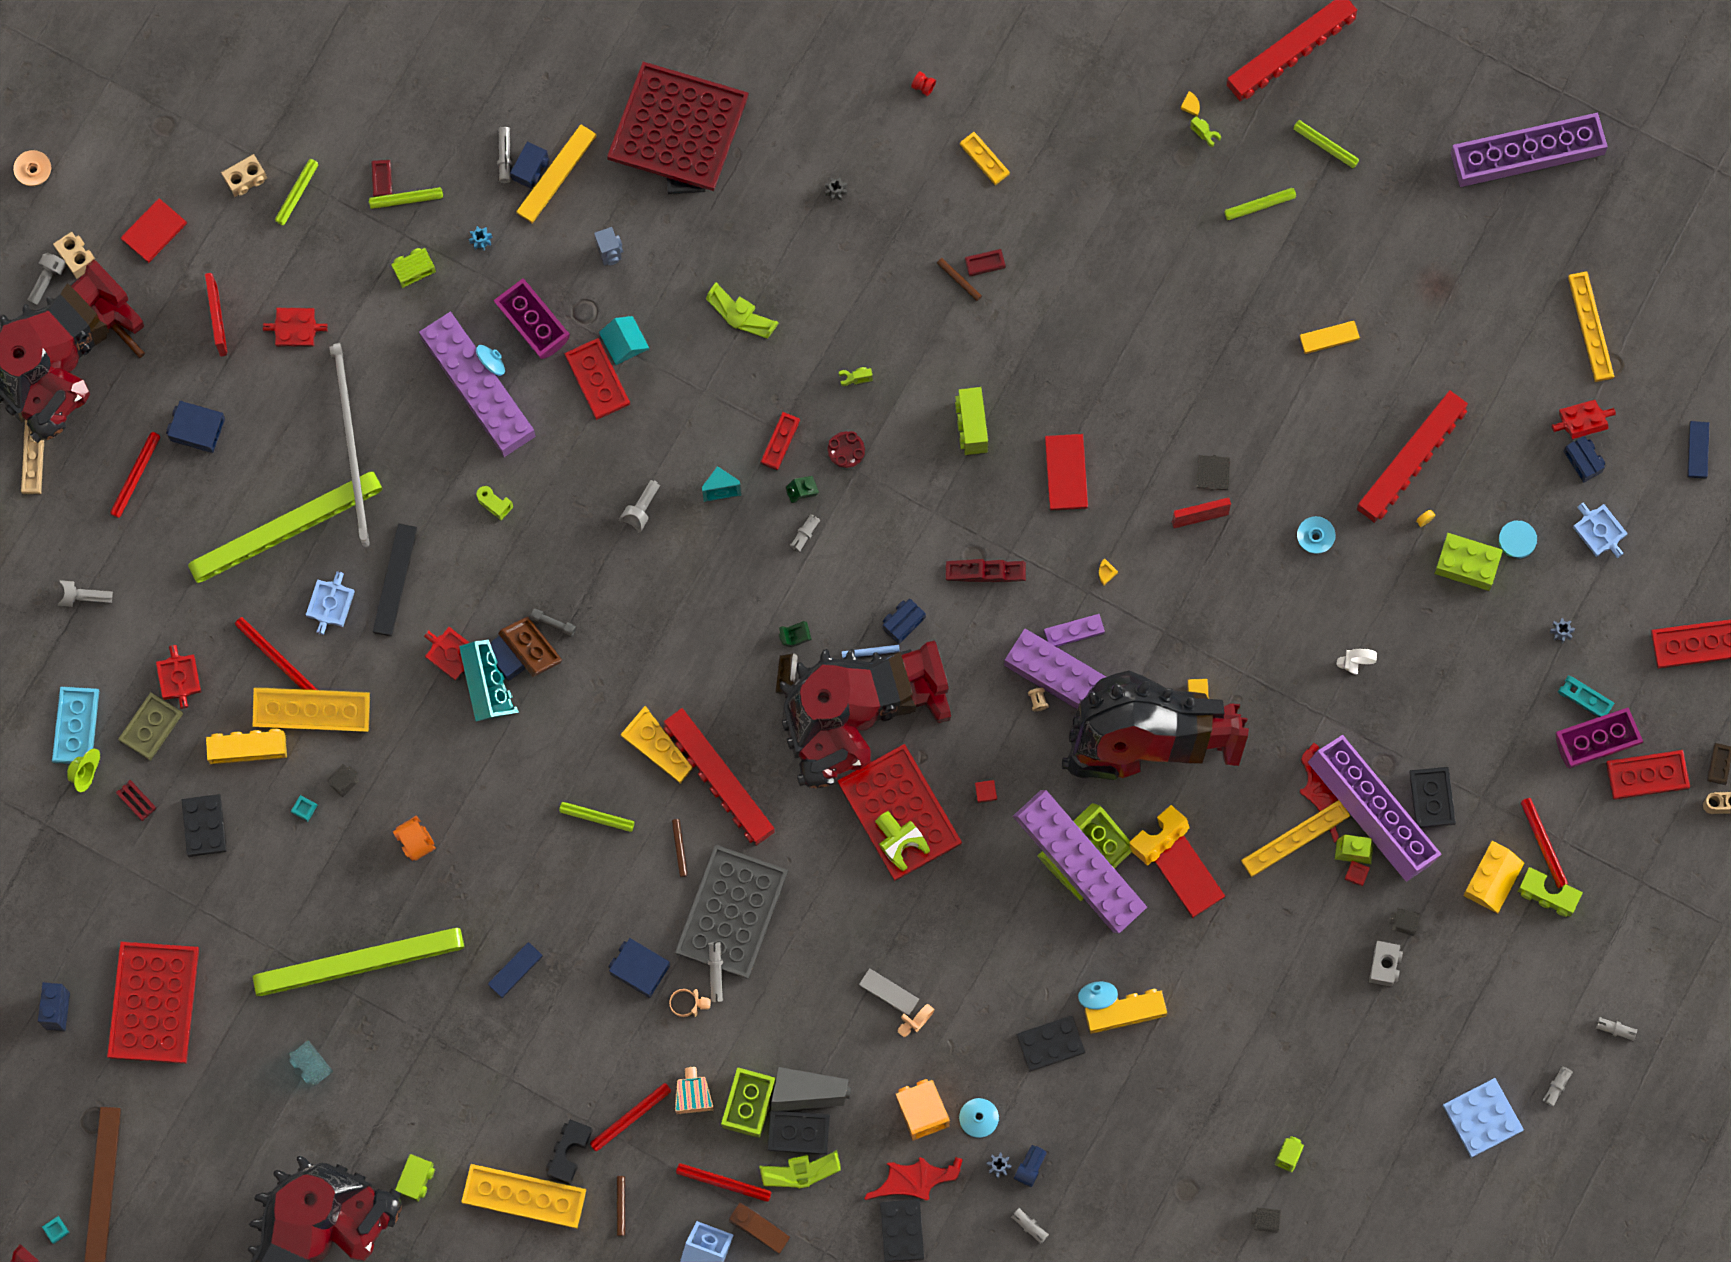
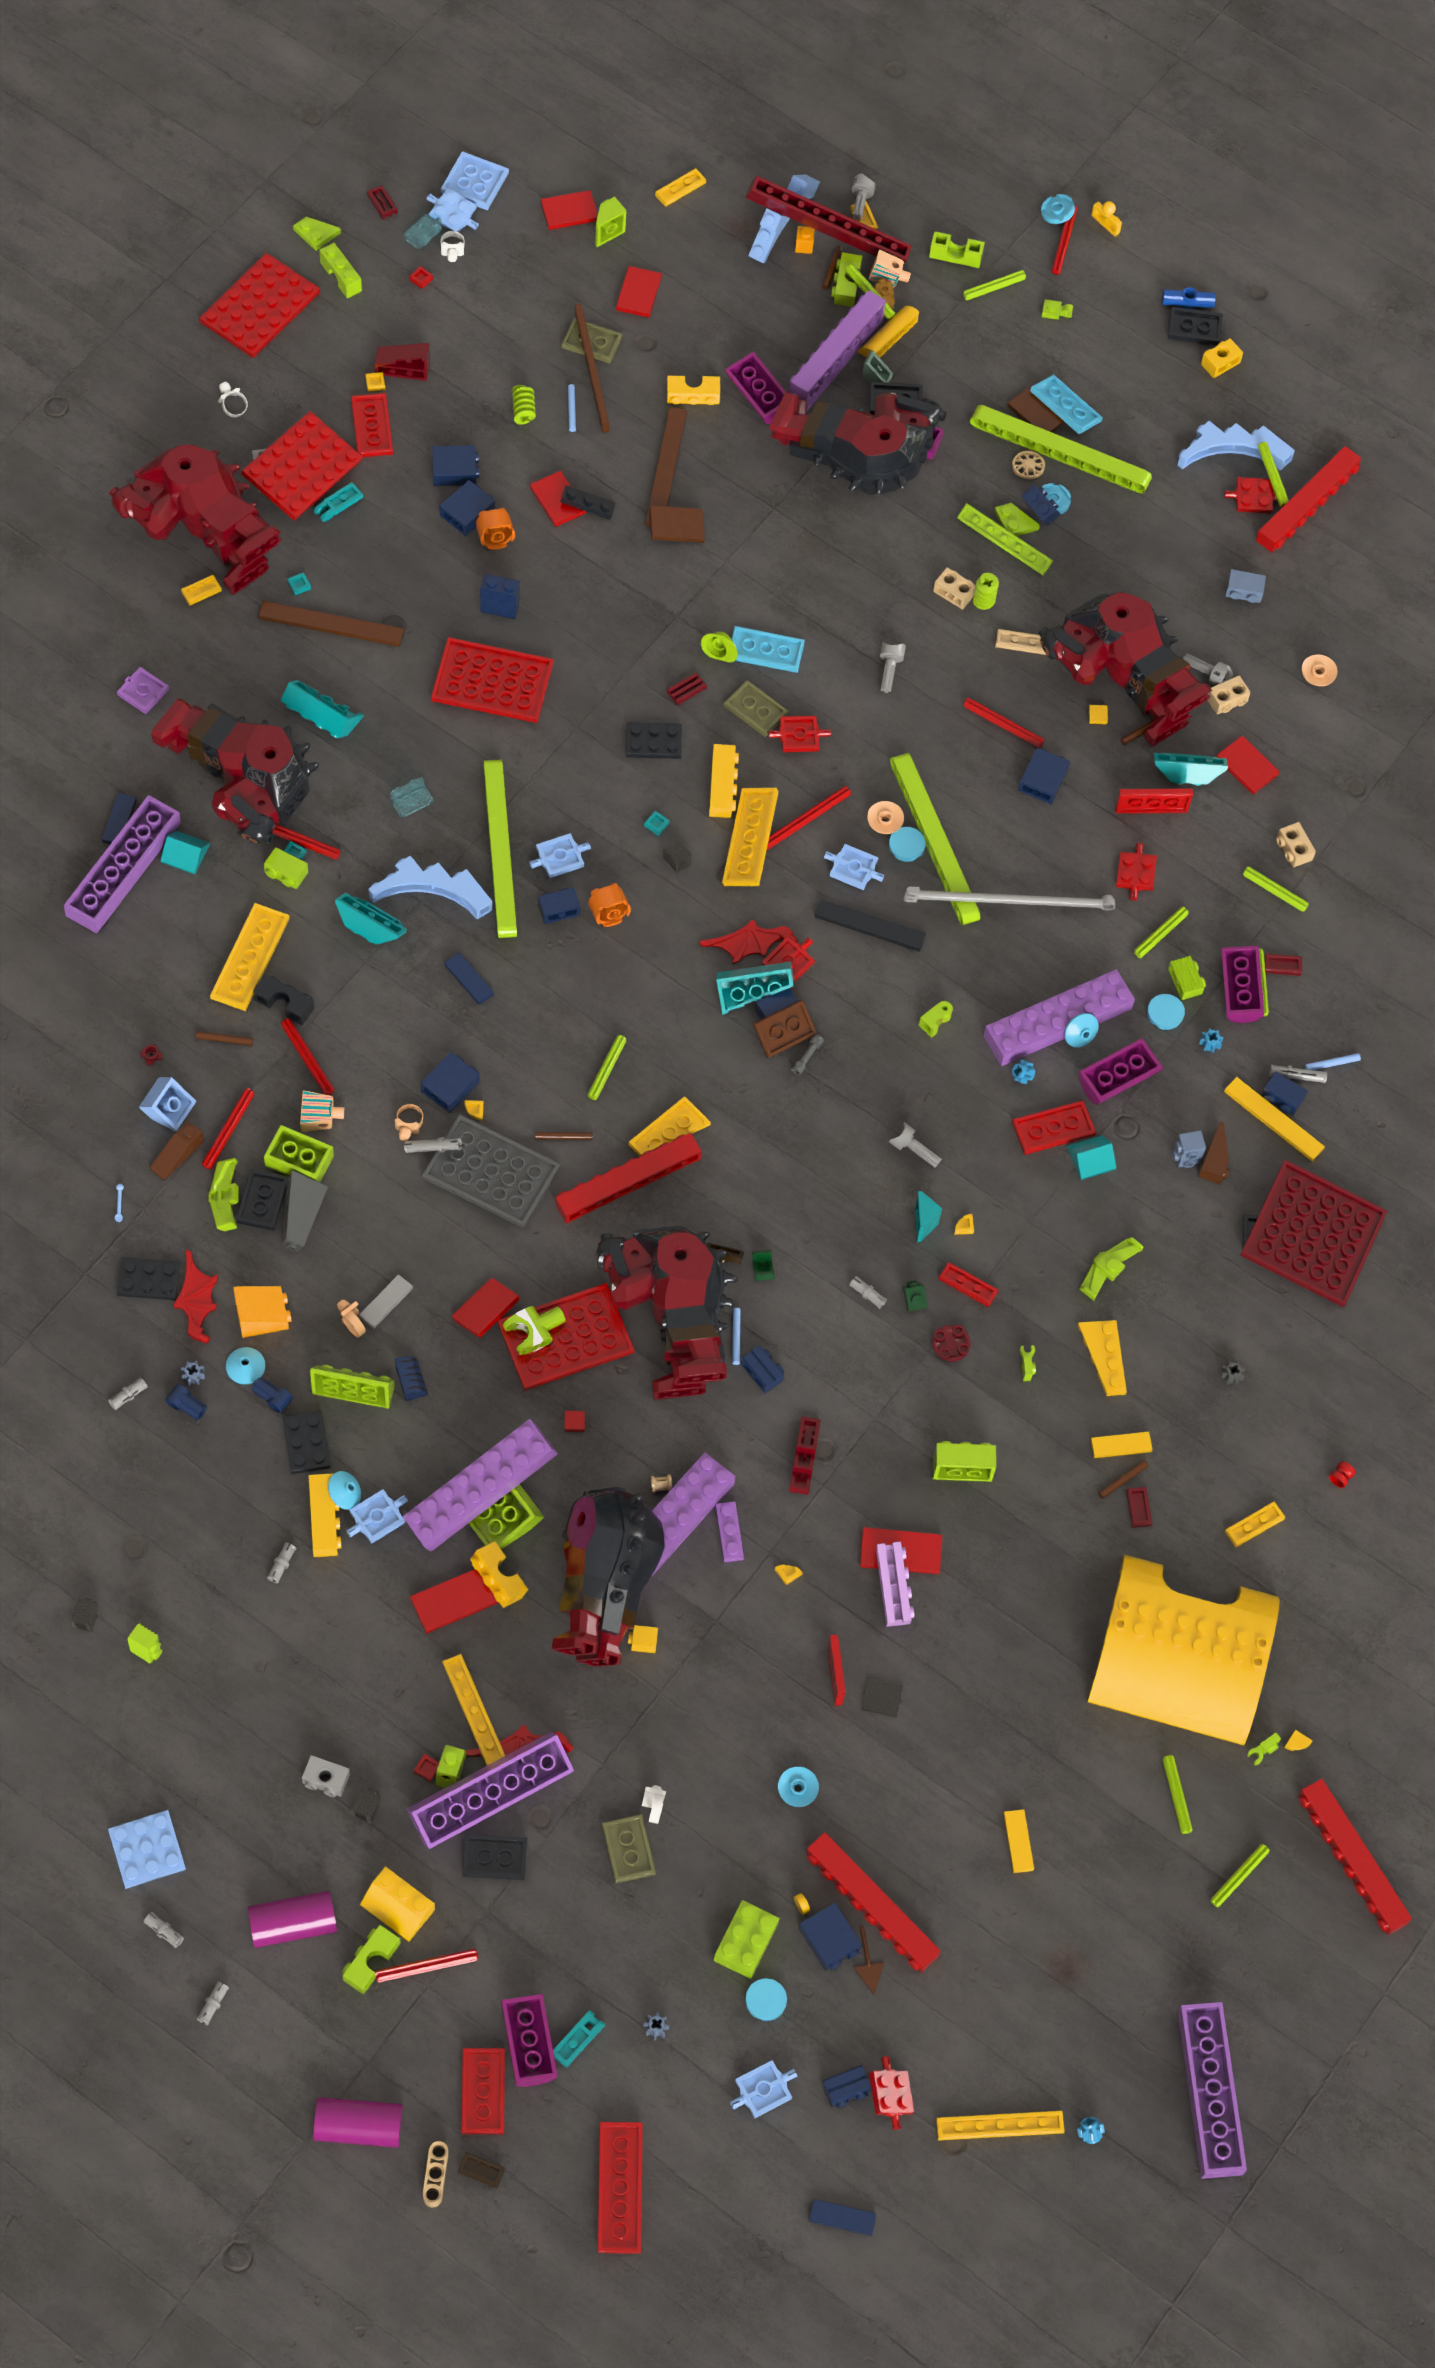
camera: 90 degrees right, 10 degrees down
(112, 382) = (1098, 714): none -> yellow tile
(167, 283) = (1190, 768): none -> teal wedge
(216, 1175) = (320, 709): none -> teal wedge
(264, 570) = (888, 811): none -> light nougat dish
(294, 554) = (907, 844): none -> medium azure tile
(358, 899) = (560, 855): none -> light blue plate
(362, 297) = (1161, 932): none -> lime axle
(380, 1156) = (306, 842): none -> red axle
(391, 1174) = (295, 850): none -> teal tile
(413, 211) = (1242, 984): none -> magenta brick
(413, 992) = (410, 878): none -> light blue arch
(418, 890) = (558, 905): none -> dark blue brick
(429, 695) = (749, 940): none -> red animal
(452, 284) = (1165, 1011): none -> medium azure tile
(466, 1077) = (368, 920): none -> teal wedge
(485, 124) = (1333, 1062): none -> light blue bar
(543, 411) = (1023, 1071): none -> dark azure gear
(619, 220) = (1217, 1158): none -> reddish brown slope
(663, 940) = (474, 1109): none -> yellow tile
(717, 451) = (965, 1225): none -> yellow tile
(828, 308) = (1105, 1352): none -> yellow wing
(882, 893) = (485, 1307): none -> red tile
(925, 284) = (1121, 1445): none -> yellow tile
(968, 954) = (410, 1377): none -> dark blue brick
(987, 1004) = (352, 1386): none -> lime slope
(1009, 1081) = (275, 1397): none -> dark blue piece
(1104, 472) = (894, 1585): none -> lavender brick
(1117, 961) = (377, 1516): none -> light blue plate
(1132, 204) = (1184, 1655): none -> yellow slope
(1179, 1044) = (281, 1563): none -> light grey pin
(1400, 679) = (628, 1848): none -> olive tile
(1451, 489) = (830, 1937): none -> dark blue brick
(1474, 453) = (871, 1972): none -> reddish brown piece
(1523, 971) = (292, 1919): none -> magenta brick
(1583, 248) = (1091, 2130): none -> dark azure gear
(1697, 879) = (357, 2122): none -> magenta brick

